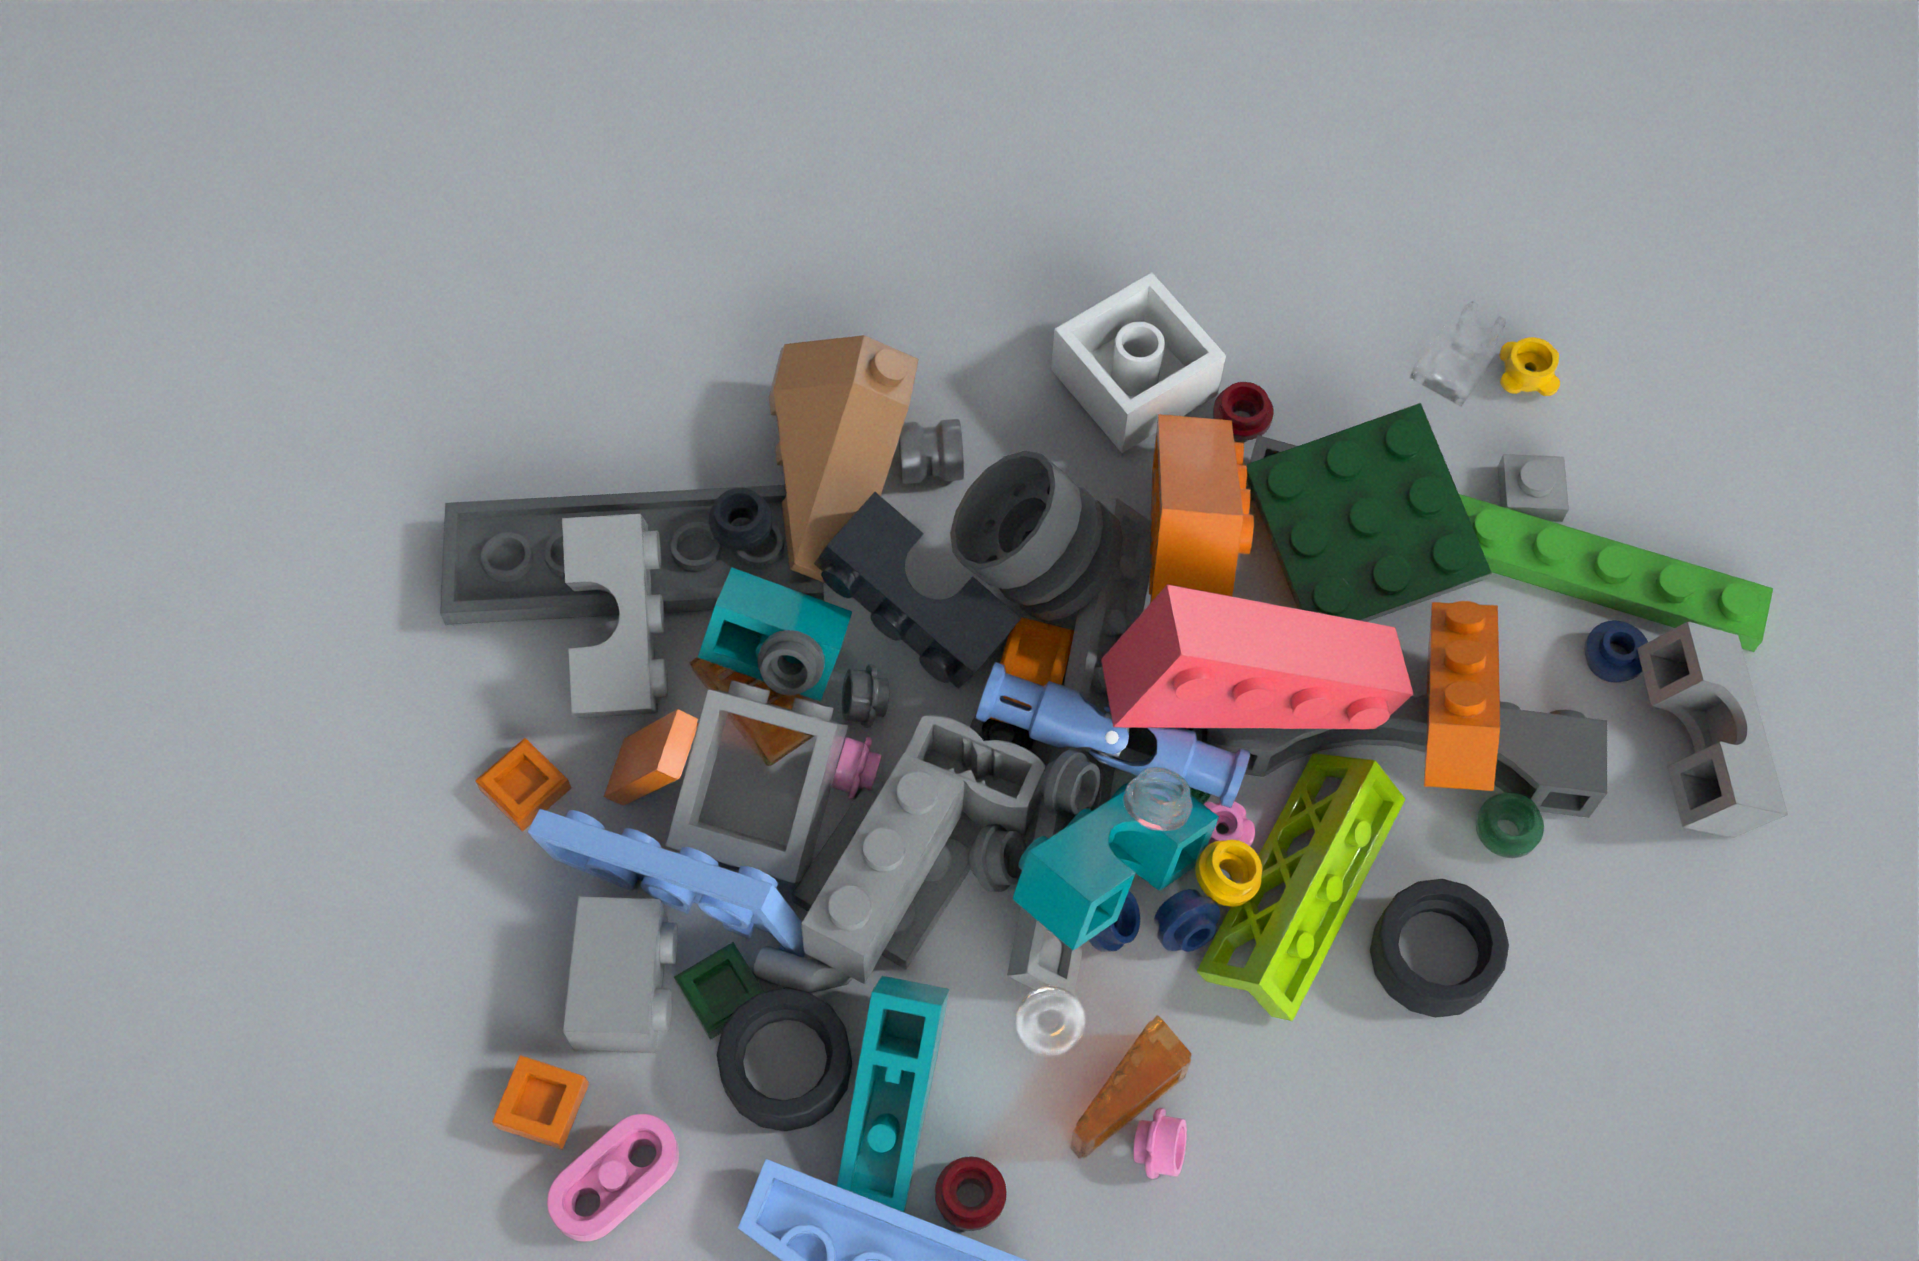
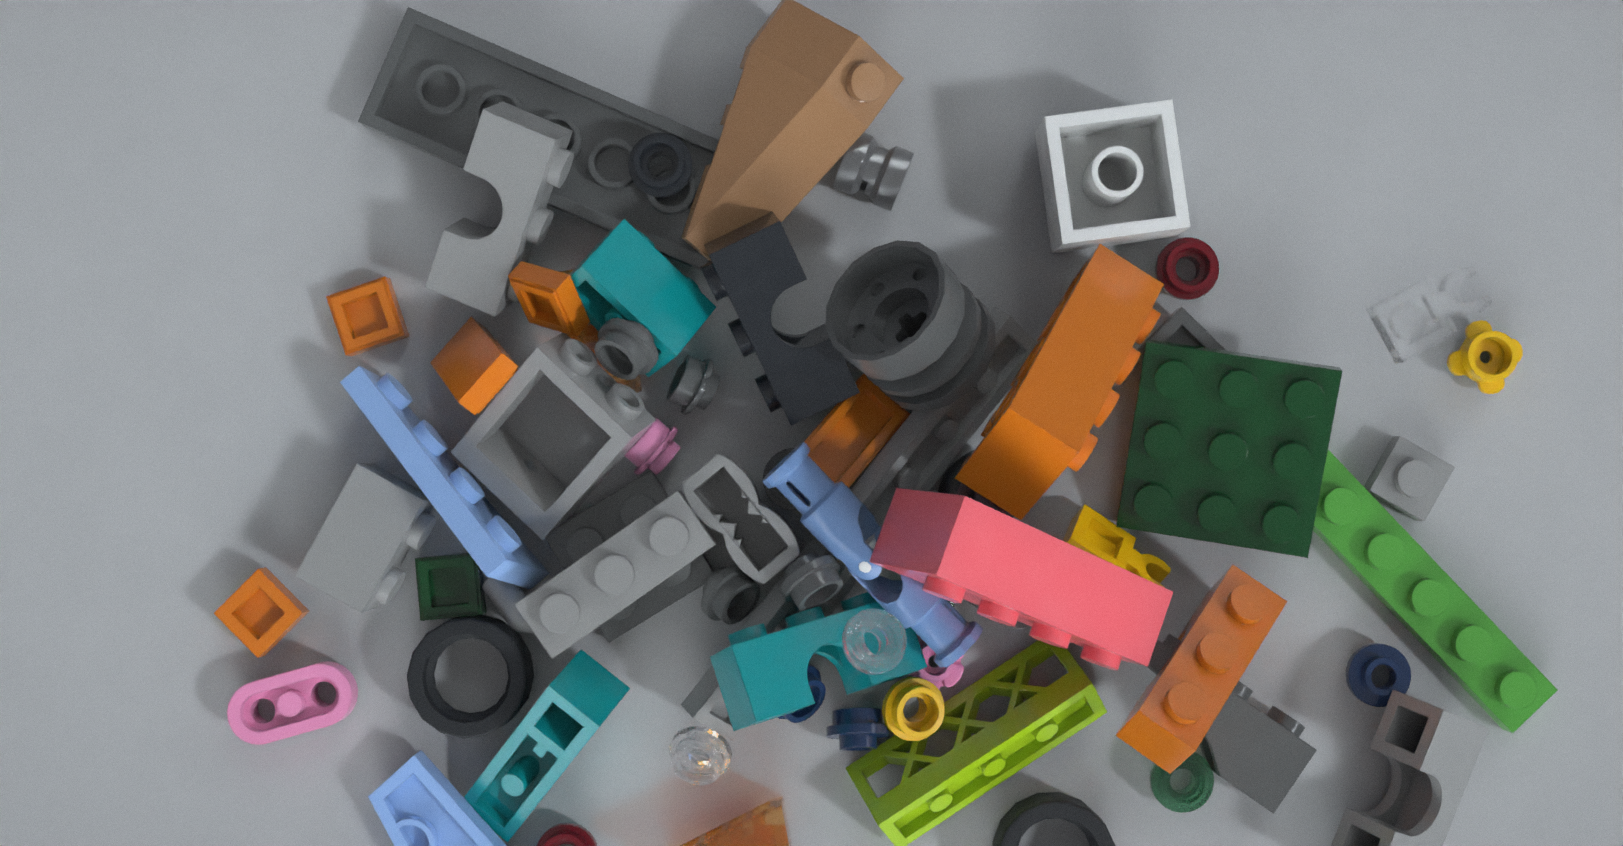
camera: 30 degrees right, 25 degrees up
(695, 663) = (549, 298): none -> orange tile

